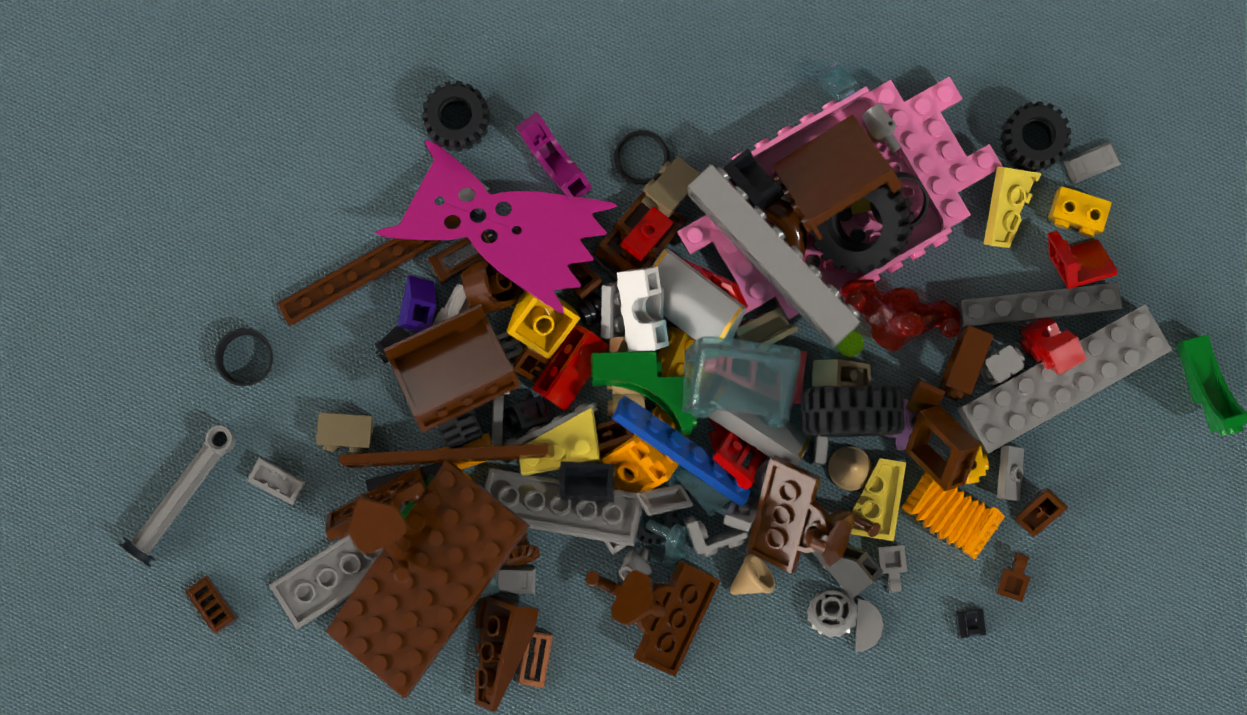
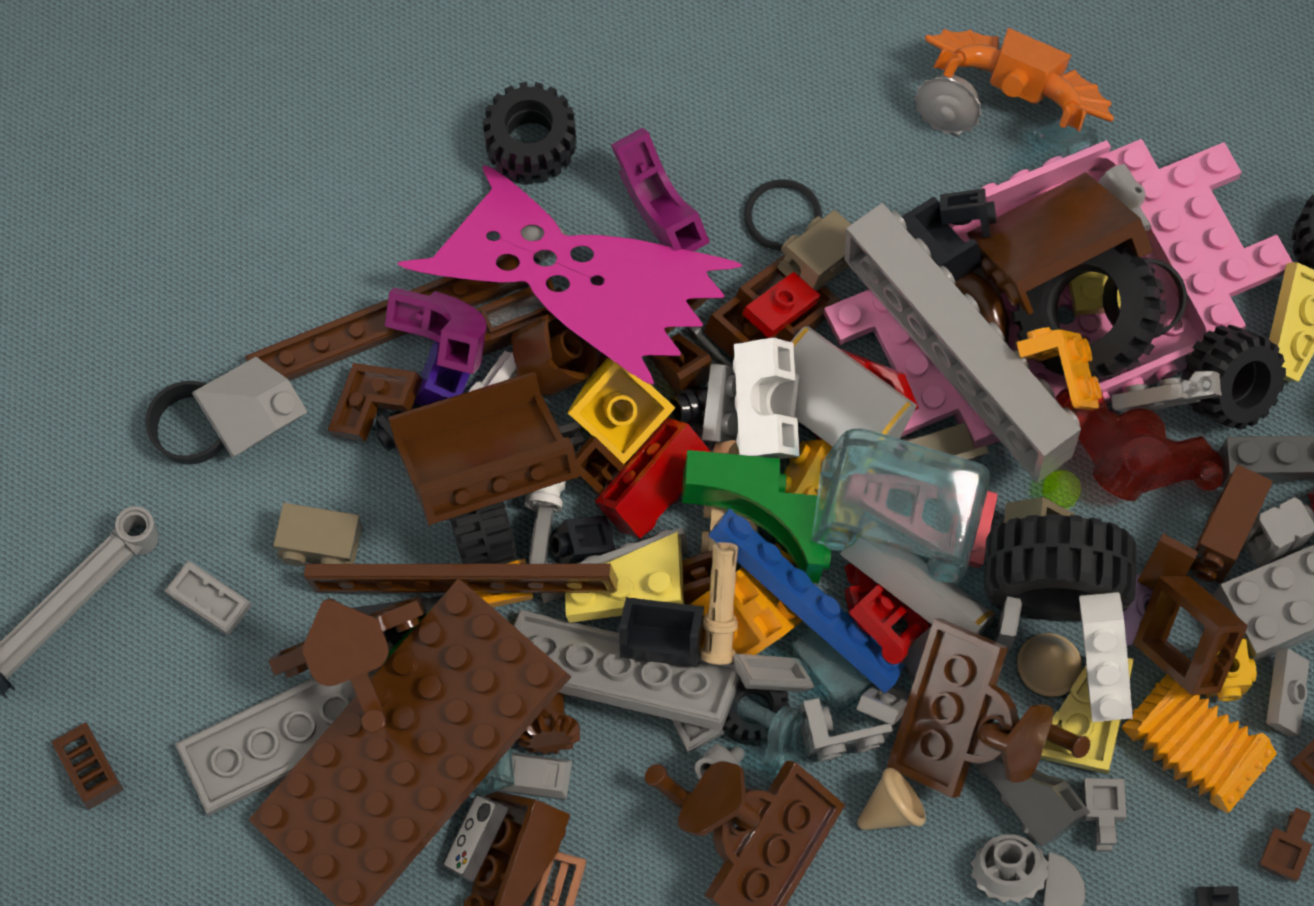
camera: 10 degrees right, 15 degrees down
(285, 343) = (249, 405): none -> light grey slope
(364, 323) = (365, 392): none -> reddish brown plate
(416, 269) = (444, 319): none -> magenta arch
(477, 629) = (474, 837): none -> tile
(626, 472) = (720, 621): none -> tan pin
(752, 64) = (949, 104): none -> light grey piece
(771, 152) = (967, 206): none -> black bracket
(804, 34) = (1023, 70): none -> orange torso
(852, 267) = (1074, 355): none -> light orange bracket
(886, 472) = (1106, 657): none -> white arch
(921, 277) = (1170, 392): none -> light grey hinge
(963, 256) = (1248, 375): none -> black tyre

